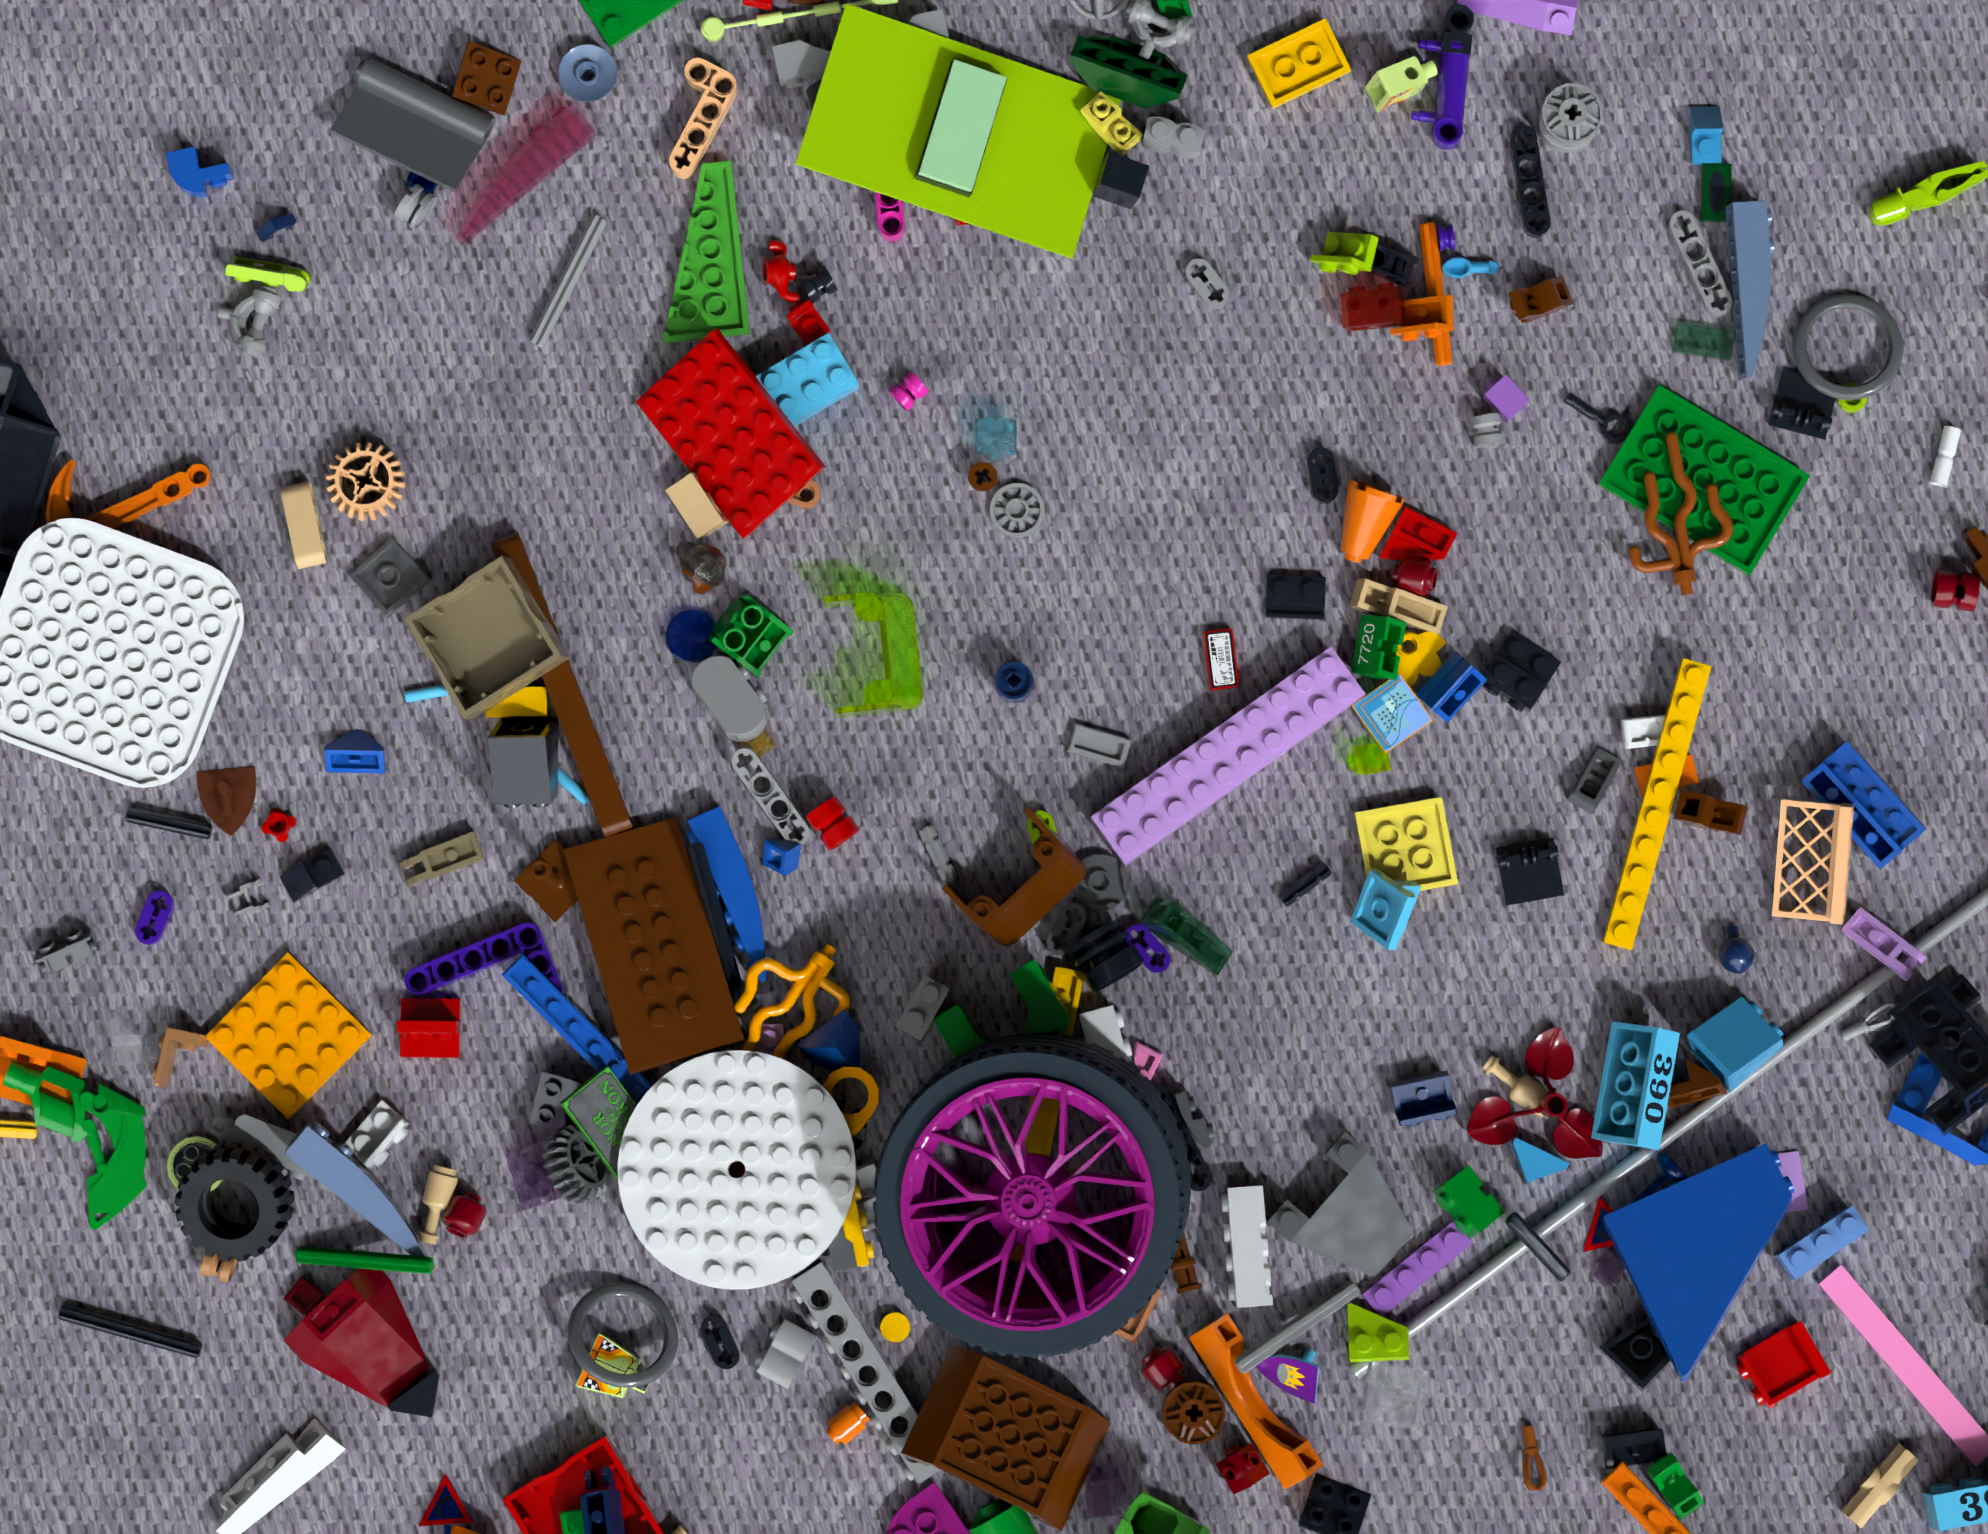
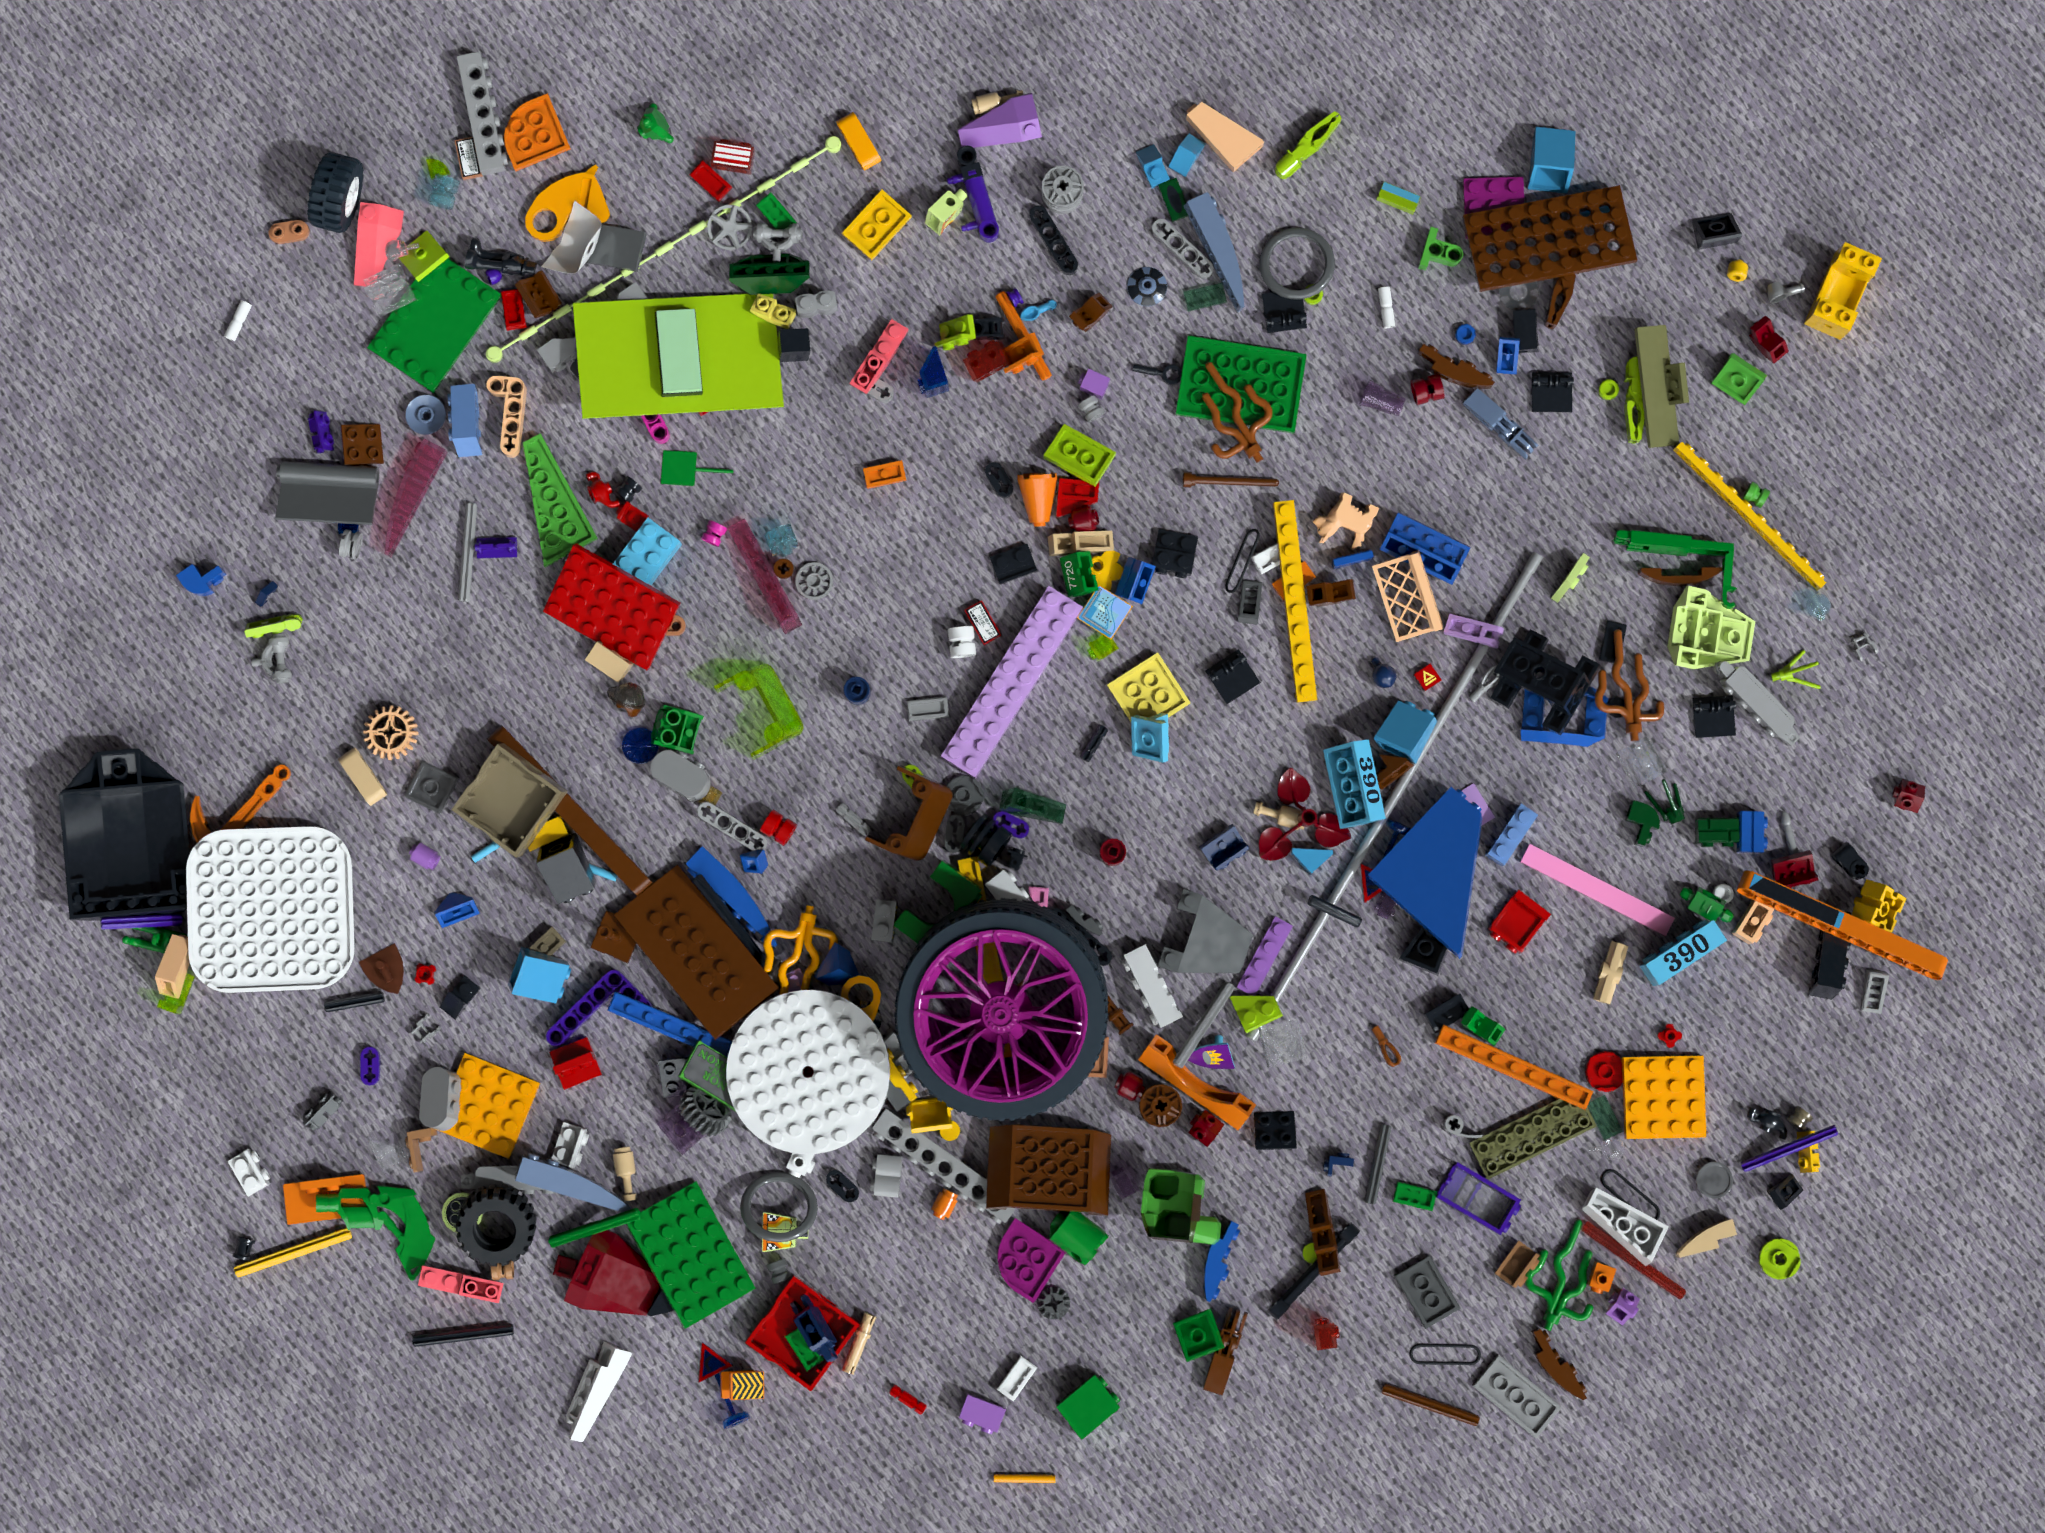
camera: 25 degrees left, 0 degrees up
(154, 1260) = (460, 1283): none -> coral slope
(229, 1001) = (440, 1098): none -> light grey brick
(342, 666) = (424, 856): none -> medium lavender brick
(429, 890) = (538, 976): none -> dark azure slope
(441, 26) = (319, 423): none -> dark purple hinge
(464, 1215) = (646, 1173): dark red head -> none
(477, 1351) = (690, 1255): none -> green plate
(588, 1421) = (779, 1271): none -> dark grey wheel
(609, 290) = (496, 547): none -> dark purple hinge
(636, 101) = (464, 420): none -> medium blue wedge
(675, 1290) = (800, 1164): none -> white brick
(875, 1295) = (929, 1115): none -> yellow piece
(899, 285) = (681, 468): none -> green piece
(953, 476) = (764, 576): none -> clear pink slope
(1136, 997) = (1016, 858): none -> black hinge
(1171, 405) = (884, 474): none -> orange plate
(1182, 674) = (961, 642): none -> white wheel
(1229, 243) = (879, 357): none -> coral slope
(1269, 1042) = (1112, 852): none -> dark red wheel
(1291, 298) = (932, 376): none -> clear blue slope
(1445, 486) = (1079, 455): none -> lime plate
(1467, 1202) = (1279, 902): green brick -> none
(1583, 581) = (1191, 479): none -> reddish brown piece
(1613, 725) = (1247, 562): none -> black piece
(1622, 307) = (1147, 296): none -> dish
(1758, 139) = (1186, 155): none -> dark azure slope
(1758, 779) = (1352, 559): none -> blue tile
(1774, 719) = (1348, 517): none -> light nougat animal
(1794, 981) = (1427, 677): none -> red tile
(1819, 134) = (1223, 135): none -> light nougat slope
(1887, 578) = (1381, 399): none -> clear purple plant

